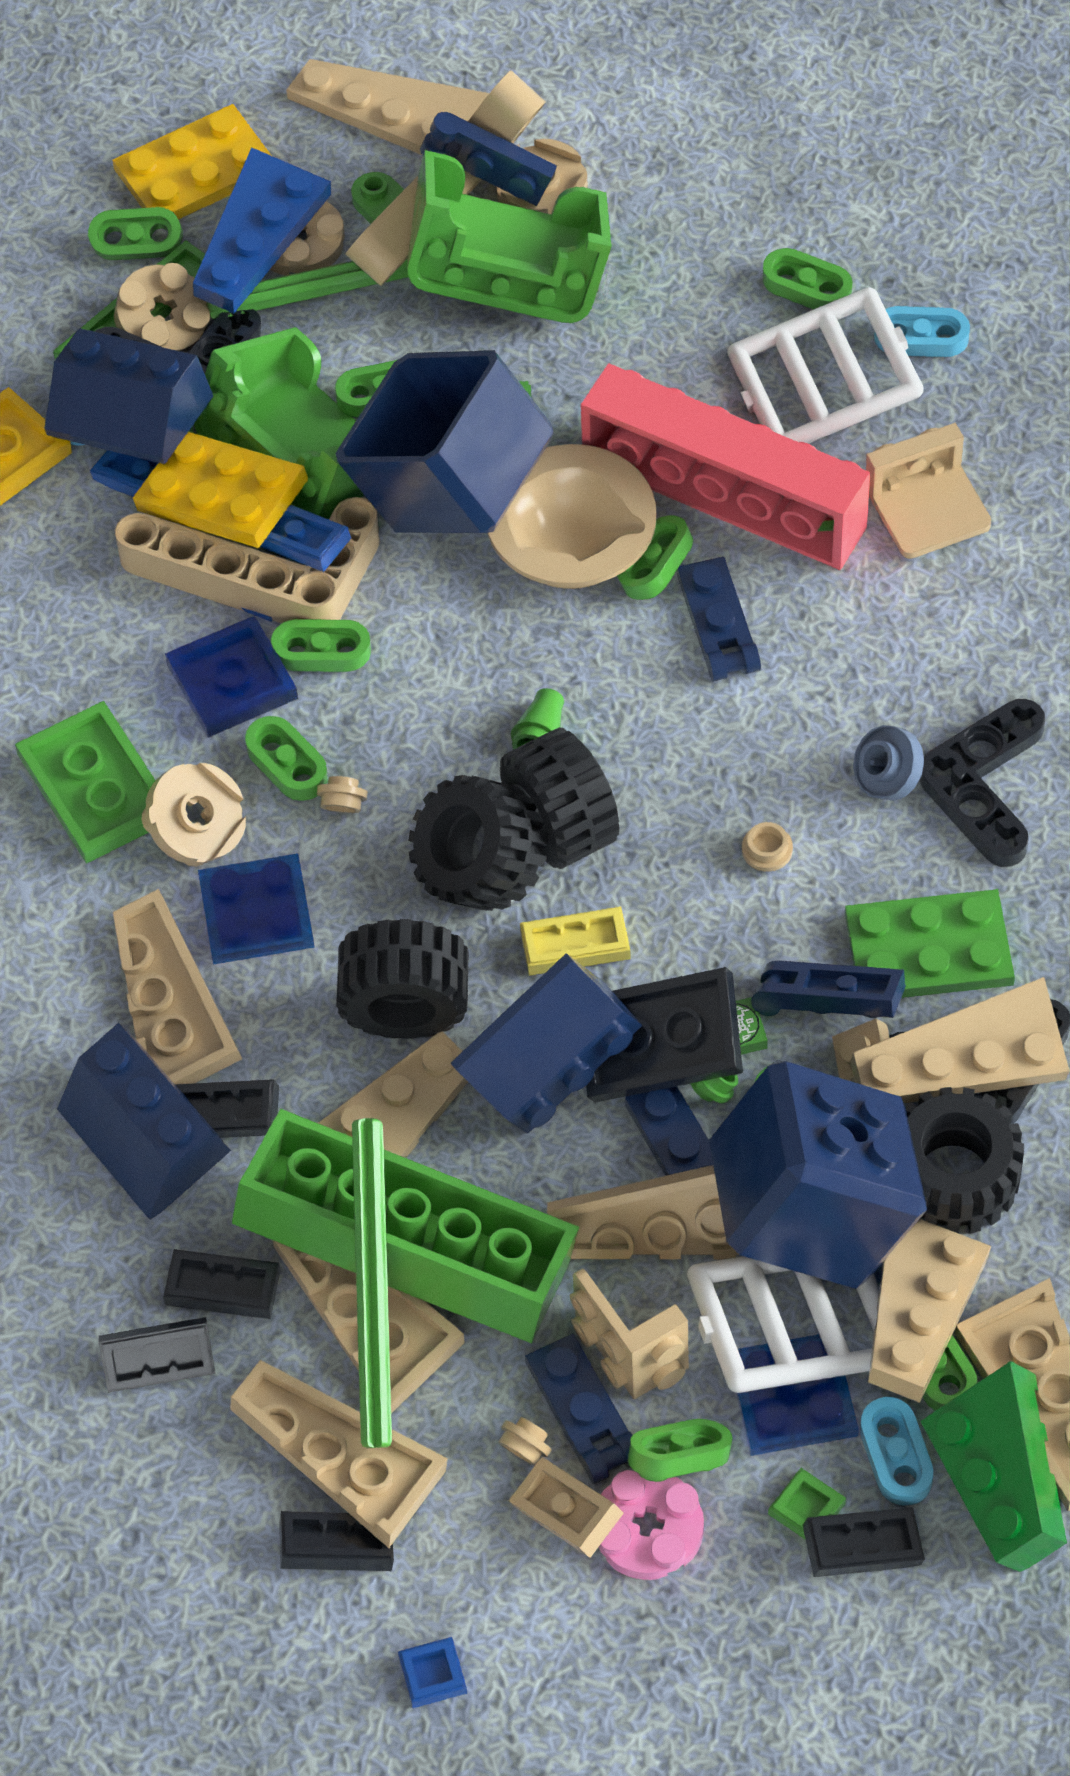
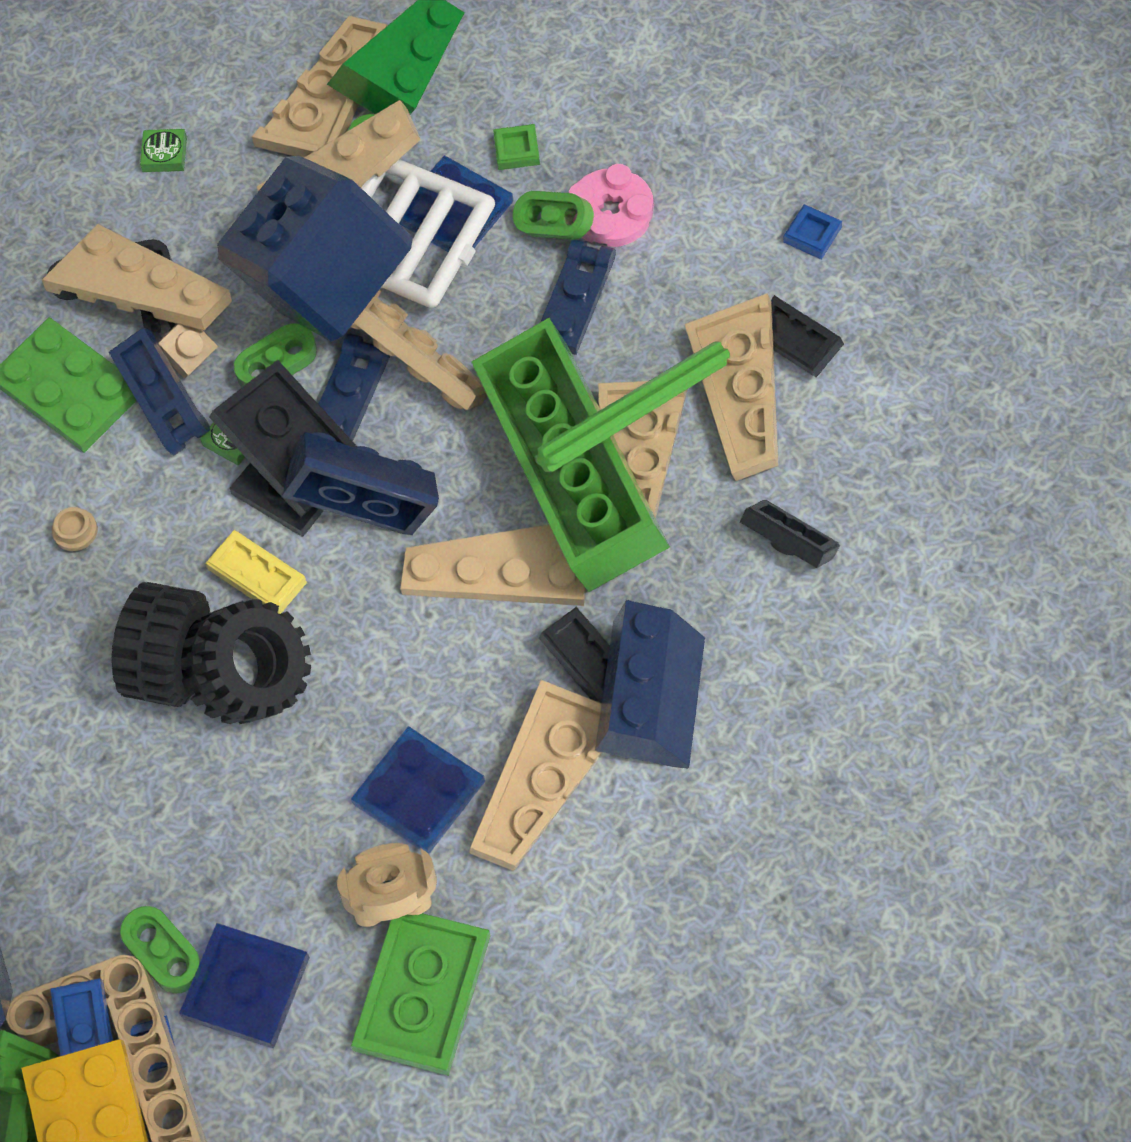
camera: 130 degrees left, 5 degrees up
(221, 1284) = (705, 547): black plate -> none
(289, 760) = (279, 882): bright green plate -> none
(341, 795) = (278, 812): tan plate -> none
(402, 979) = (396, 611): black tyre -> none
(525, 1440) = (629, 299): tan plate -> none
(539, 718) = (100, 743): bright green cone -> none
(566, 1507) = (650, 237): tan plate -> none
(638, 1358) = (513, 268): tan bracket -> none
(863, 1542) = (512, 98): black plate -> none
(896, 1454) = (440, 131): medium azure plate -> none
(980, 1128) = (197, 213): black tyre -> none

